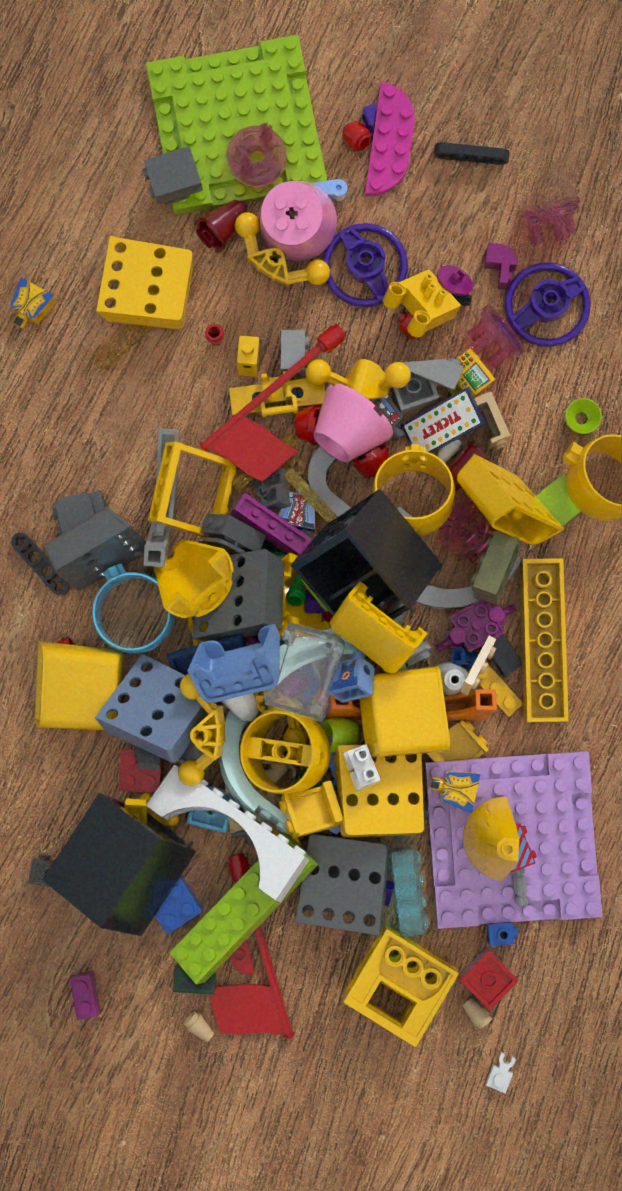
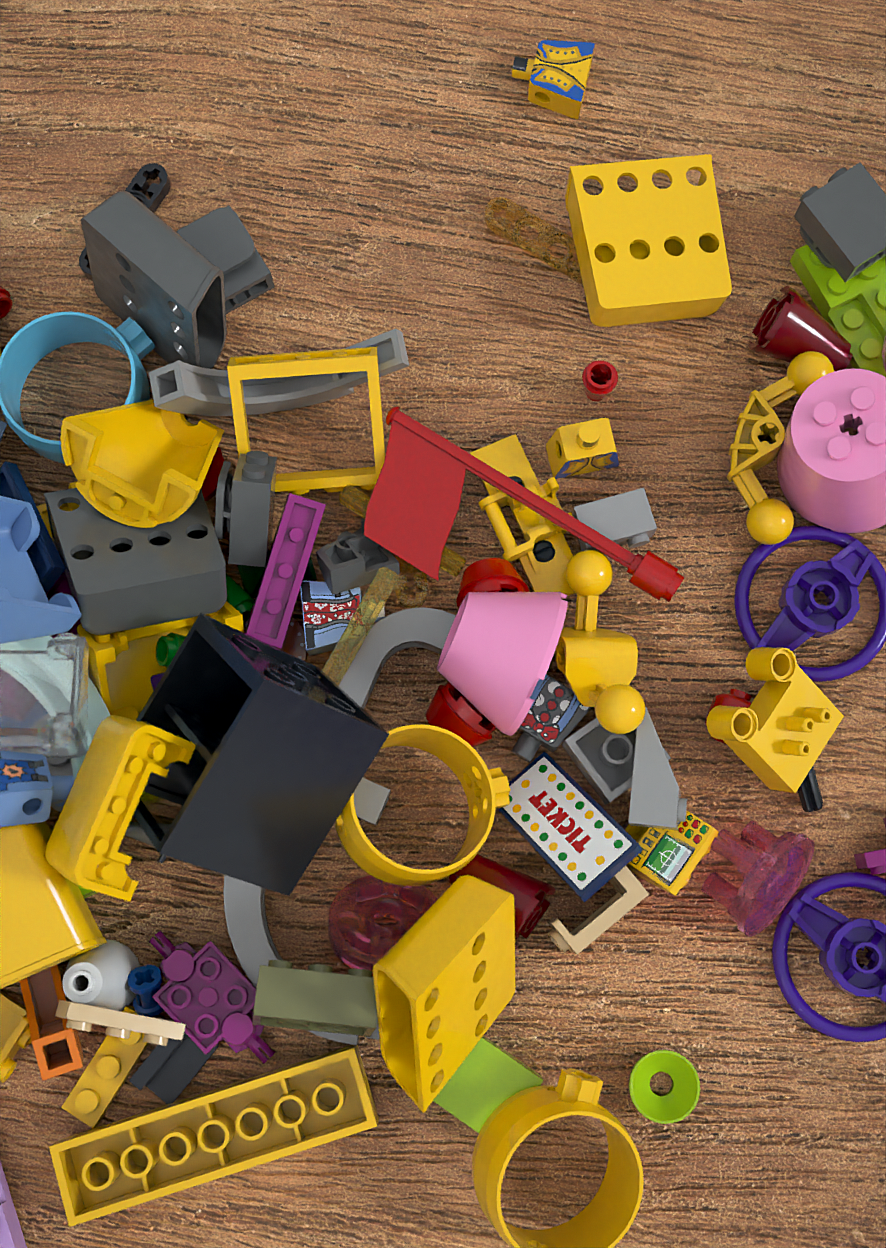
camera: 70 degrees right, 5 degrees down
(419, 654) = (144, 903): light grey brick -> none
(448, 451) = (518, 849): white cone -> none
(454, 280) = (839, 770): magenta piece -> none

